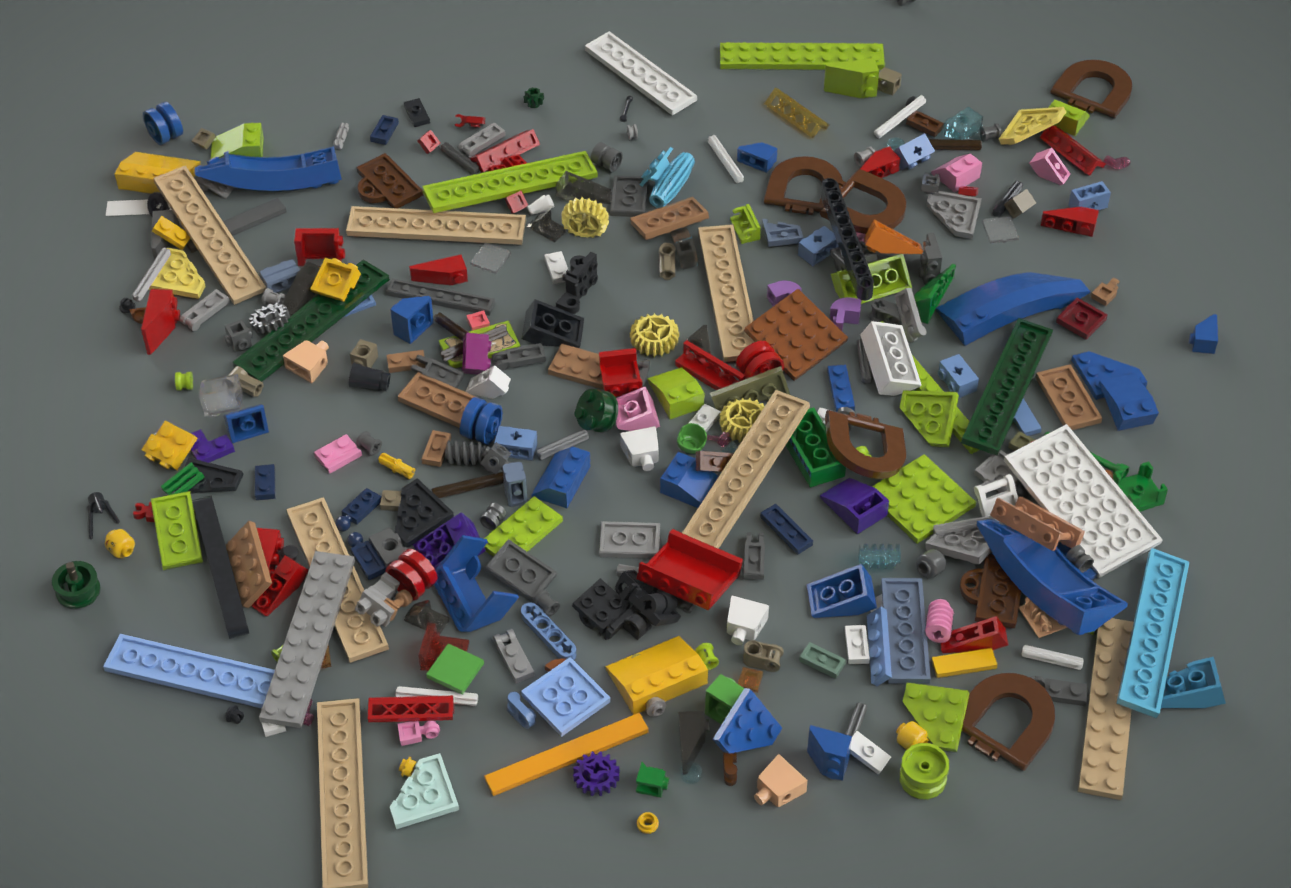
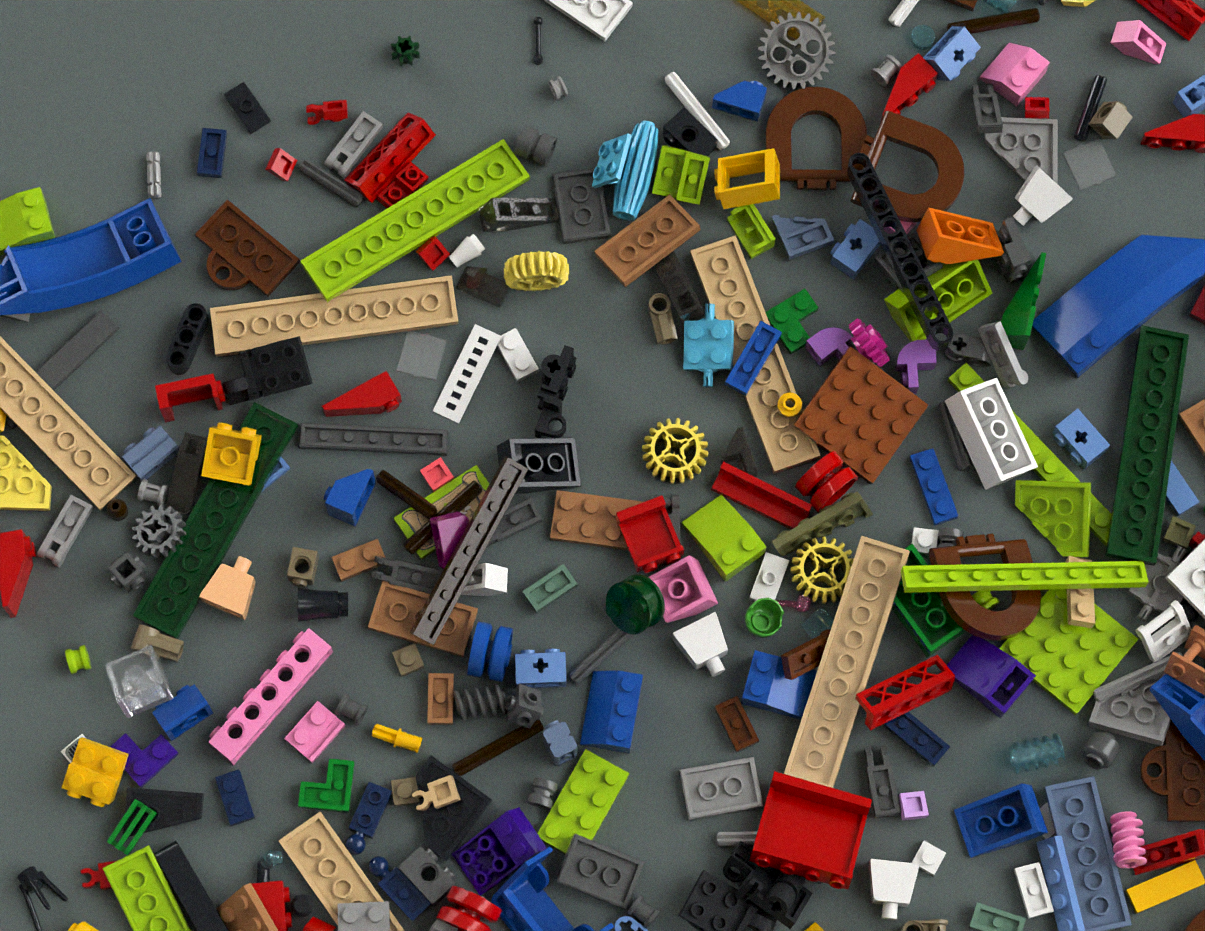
camera: 15 degrees left, 25 degrees up
(245, 304) = (120, 513): none -> dark brown hose
(278, 520) = (264, 865): none -> arm
(312, 425) = (318, 653): none -> bright pink brick
(333, 216) = (187, 327): none -> black beam
(338, 490) = (334, 794): none -> green plate
(382, 242) = (271, 369): none -> black plate
(415, 498) = (440, 793): none -> tan plate
(421, 423) = (408, 660): none -> dark tan plate
(484, 357) = (469, 550): none -> plate
(518, 271) = (466, 373): none -> white sticker
(538, 398) = (549, 588): none -> sand green plate
(653, 500) = (736, 724): none -> reddish brown plate
(696, 279) = (708, 345): none -> medium azure plate
(703, 185) = (680, 174): none -> lime slope
(716, 169) = (686, 124): none -> black brick
(725, 288) = (753, 358): none -> blue plate
(744, 318) = (786, 411): none -> yellow plate
(749, 191) = (748, 164): none -> yellow window
(758, 278) = (787, 319): none -> green plate
(774, 573) = (913, 805): none -> lavender plate
(779, 611) = (929, 858): none -> white plate
(787, 499) = (909, 699): none -> red fence
(803, 134) = (785, 69): none -> light grey gear
(813, 291) = (869, 342): none -> dark pink gear
(895, 436) = (1024, 576): none -> lime plate
(936, 462) = (1080, 603): none -> tan plate
(959, 235) = (1039, 197): none -> white torso

